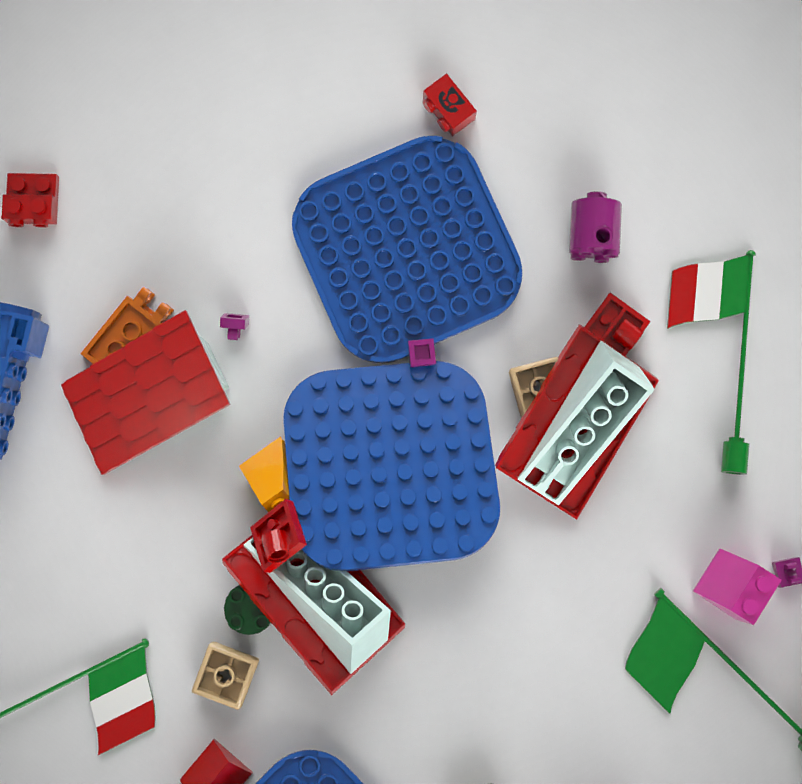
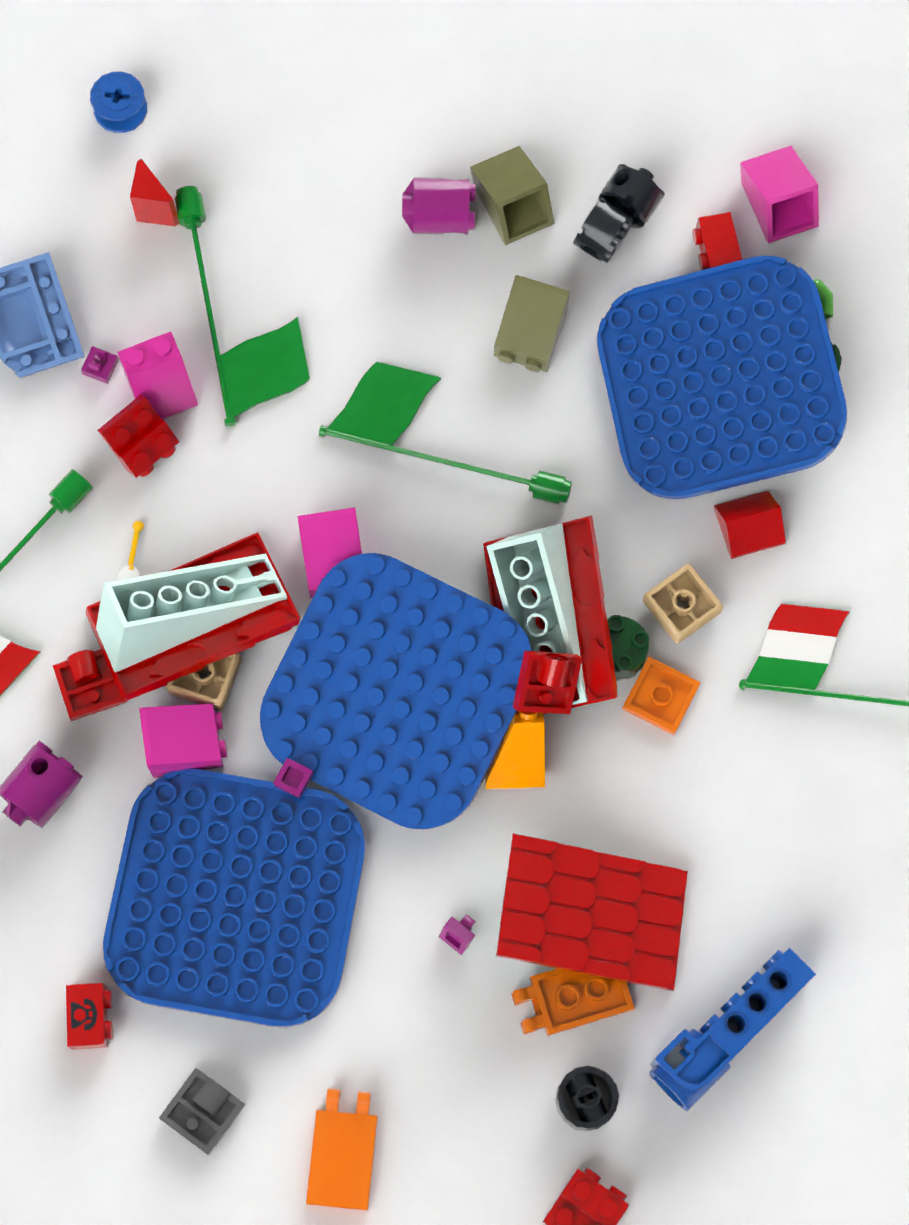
camera: 150 degrees left, 10 degrees down
(72, 268) = (587, 1098): none -> black brick
(199, 593) = (661, 695): none -> orange tile
(218, 131) = (342, 1154): none -> orange tile
(329, 96) = (202, 1111): none -> dark grey plate
(515, 540) = (327, 541): none -> dark pink slope
(520, 328) = (182, 738): none -> dark pink slope
(551, 683) = (384, 409): none -> green flag
(647, 425) = (129, 571): none -> hinge
(716, 531) = (139, 437): none -> red plate

